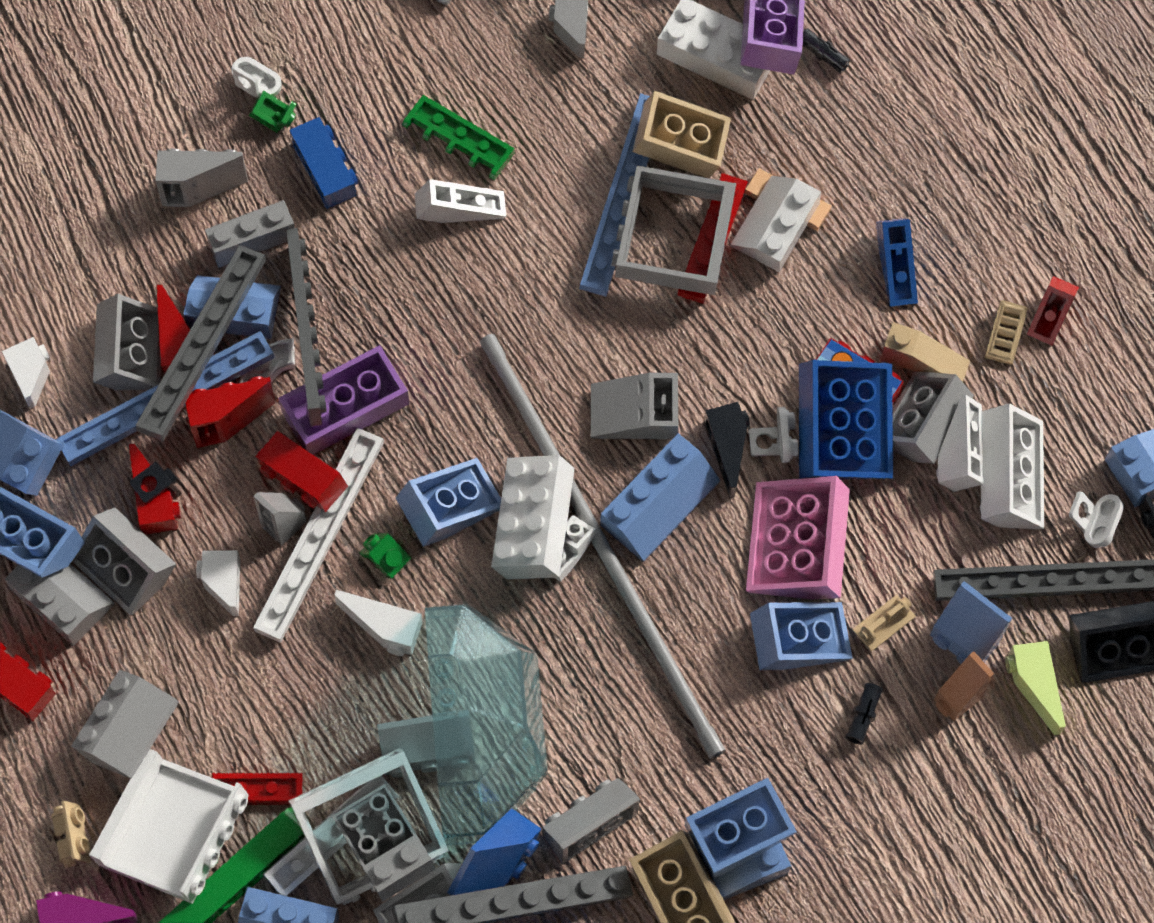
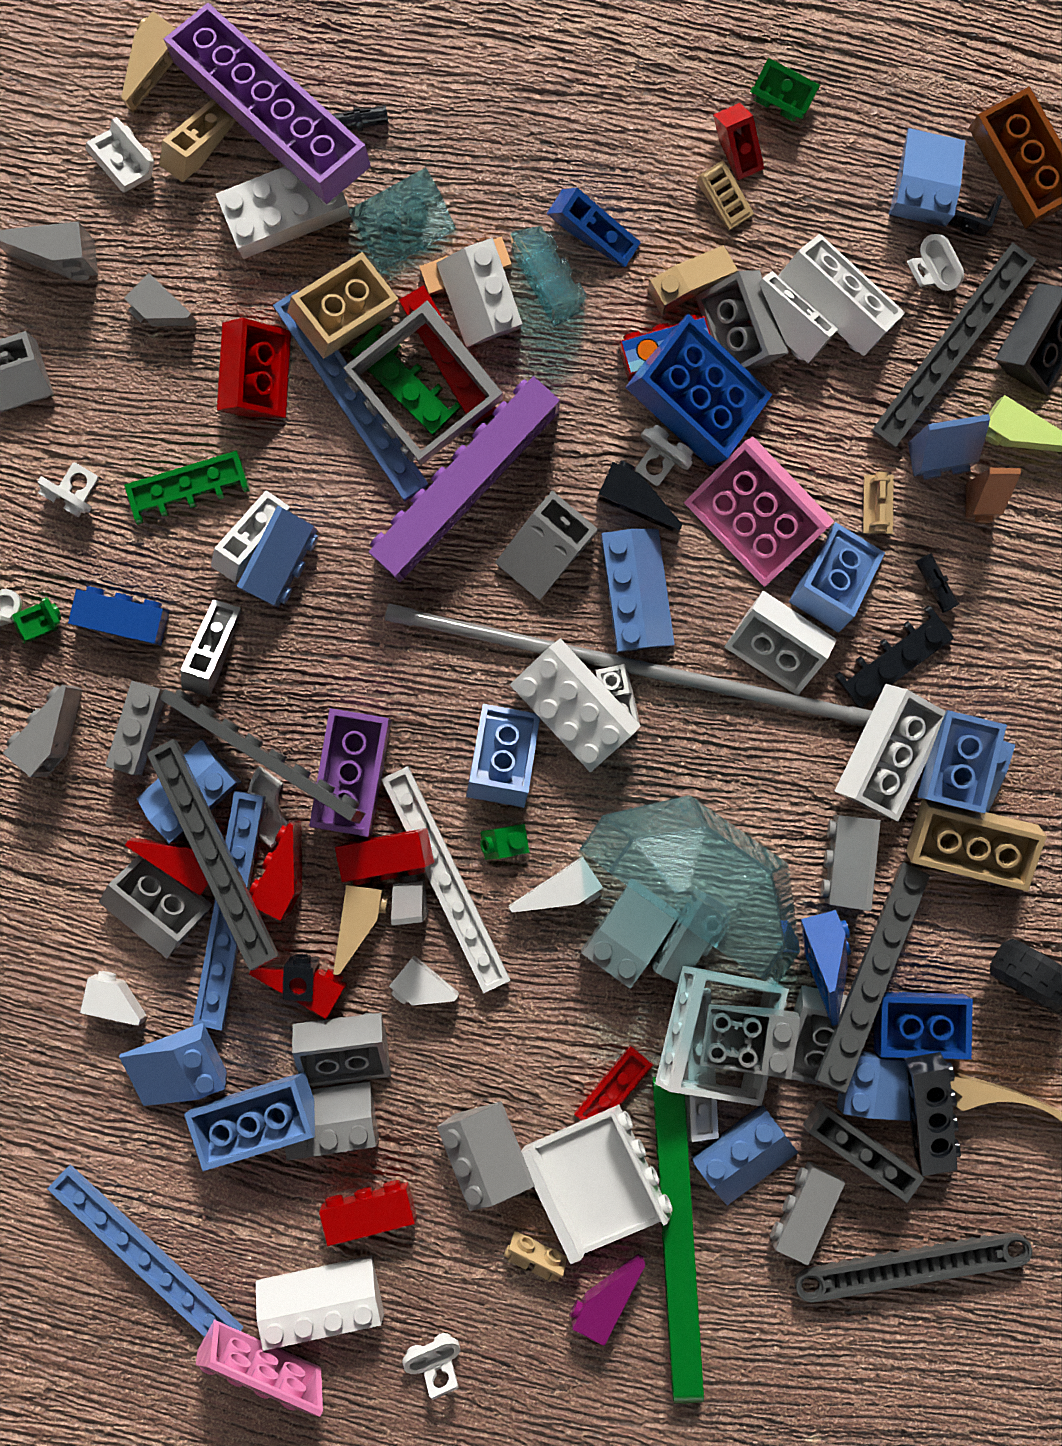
camera: 45 degrees left, 20 degrees up
(228, 496) = (359, 915): none -> tan slope
(351, 239) = (209, 648): none -> light grey slope
(379, 73) = (74, 502): none -> white bracket
(385, 696) = (628, 937): none -> light grey slope
(460, 230) = (278, 557): none -> medium blue slope
(583, 116) = (253, 369): none -> red slope
(631, 311) = (465, 479): none -> medium lavender brick
(664, 227) = (407, 387): none -> green hinge
(698, 775) = (891, 752): none -> white brick
(713, 633) = (781, 643): none -> white slope
(778, 733) = (896, 660): none -> black hinge
(780, 131) = (402, 219): none -> clear light blue slope
(833, 254) = (547, 274): none -> clear light blue slope
(1119, 312) = (785, 90): none -> green bracket

